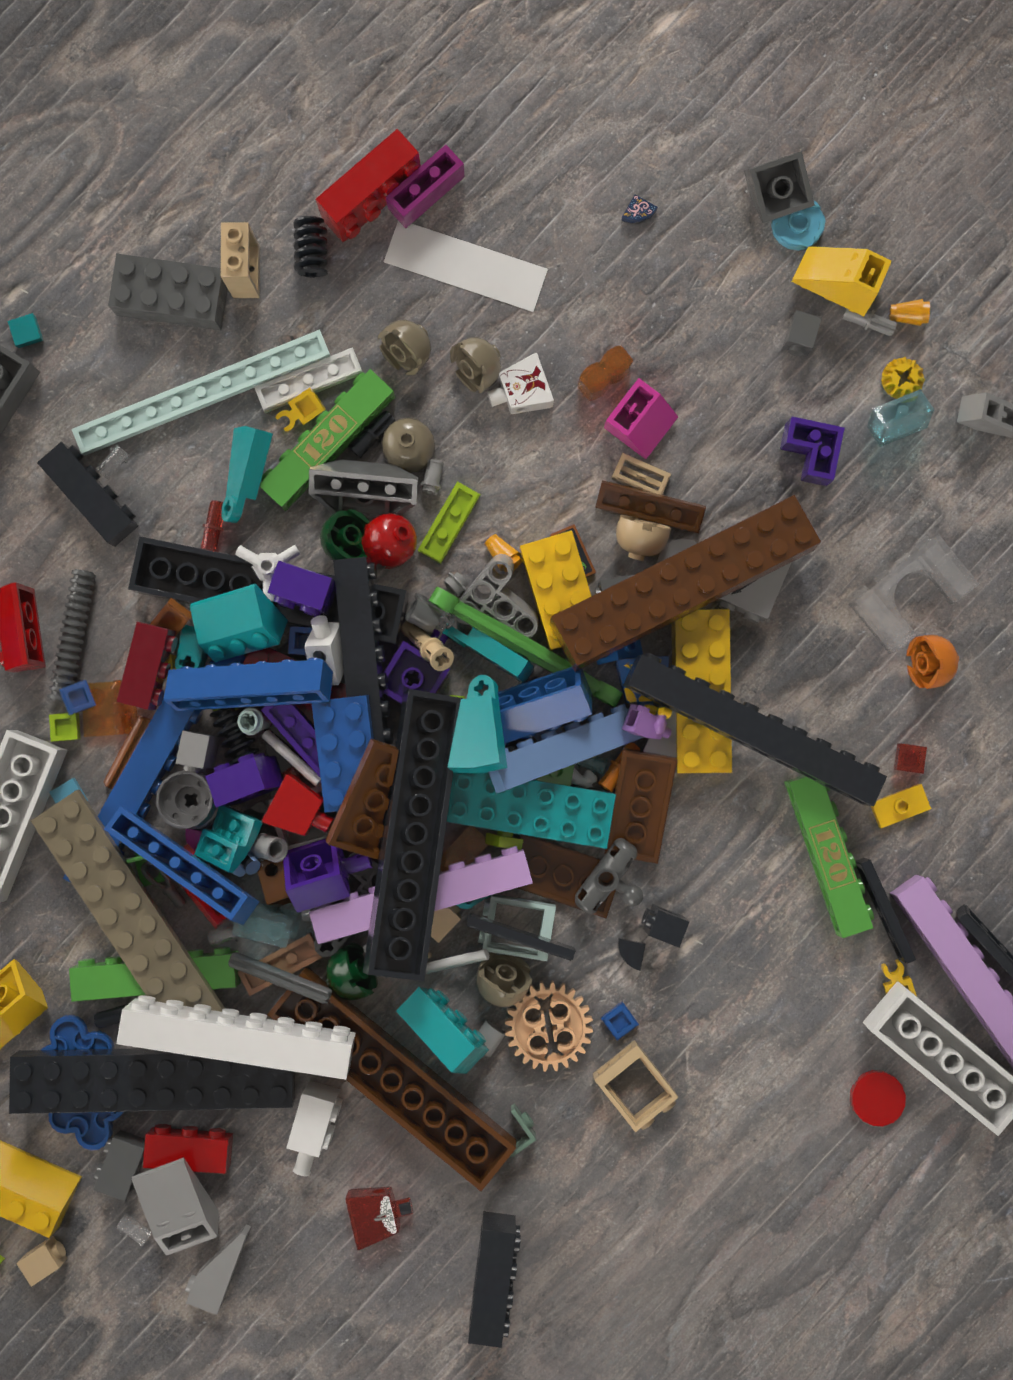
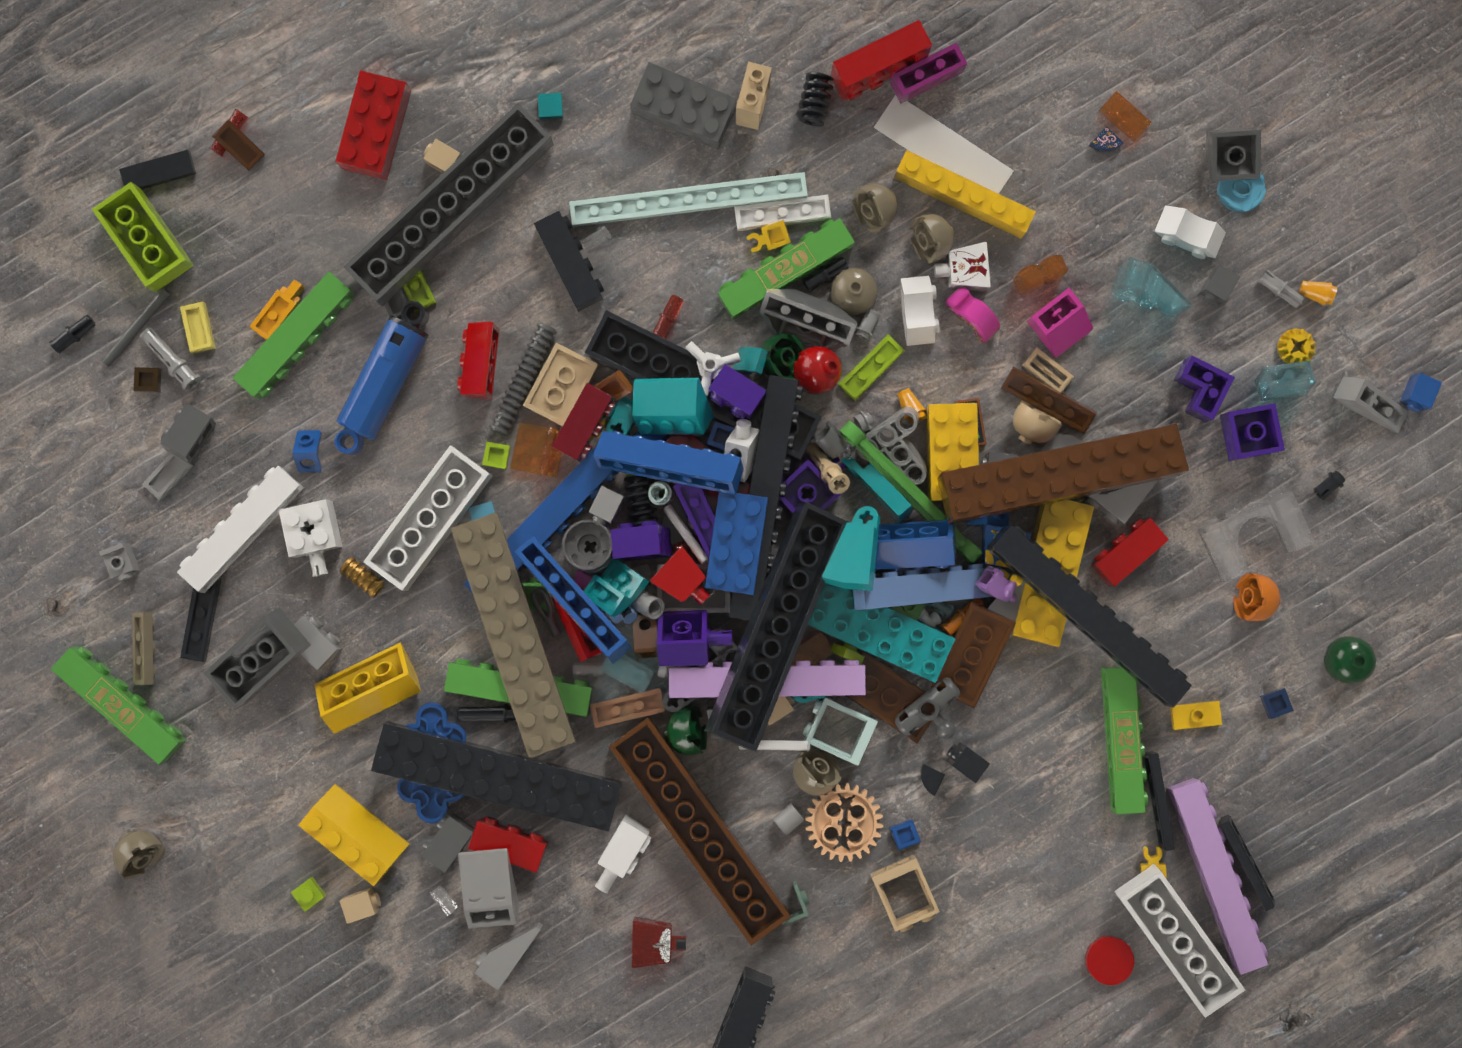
camera: 15 degrees right, 0 degrees up
(77, 697) = (515, 433): blue tile -> none
(112, 629) = (560, 384): none -> tan plate
(126, 750) = (544, 491): dark orange axle -> none
(236, 1037) = (583, 758): white brick -> none
(246, 469) = (710, 276): teal piece -> none
(280, 977) = (628, 718): dark grey axle -> none
(313, 549) = (751, 360): none -> teal slope
(364, 805) = (740, 592): reddish brown wing -> none
(443, 1029) = (756, 799): teal brick -> none
(482, 446) = (918, 310): none -> white brick
(498, 307) = (964, 194): none -> yellow brick
(521, 937) = (842, 738): black tile -> none
(544, 434) = (973, 313): none -> dark pink animal
(652, 178) = (1125, 116): none -> clear orange plate
(725, 355) = (1148, 287): none -> clear light blue slope
(755, 284) = (1190, 232): none -> white brick
(780, 647) = (1129, 551): none -> red brick
(843, 275) = (1268, 245): yellow slope -> none
(879, 482) = (1252, 432): none -> dark purple brick
(910, 758) = (1215, 676): clear red plate -> none
(978, 517) = (1329, 485): none -> black pin
(984, 769) = (1276, 703): none -> dark blue plate

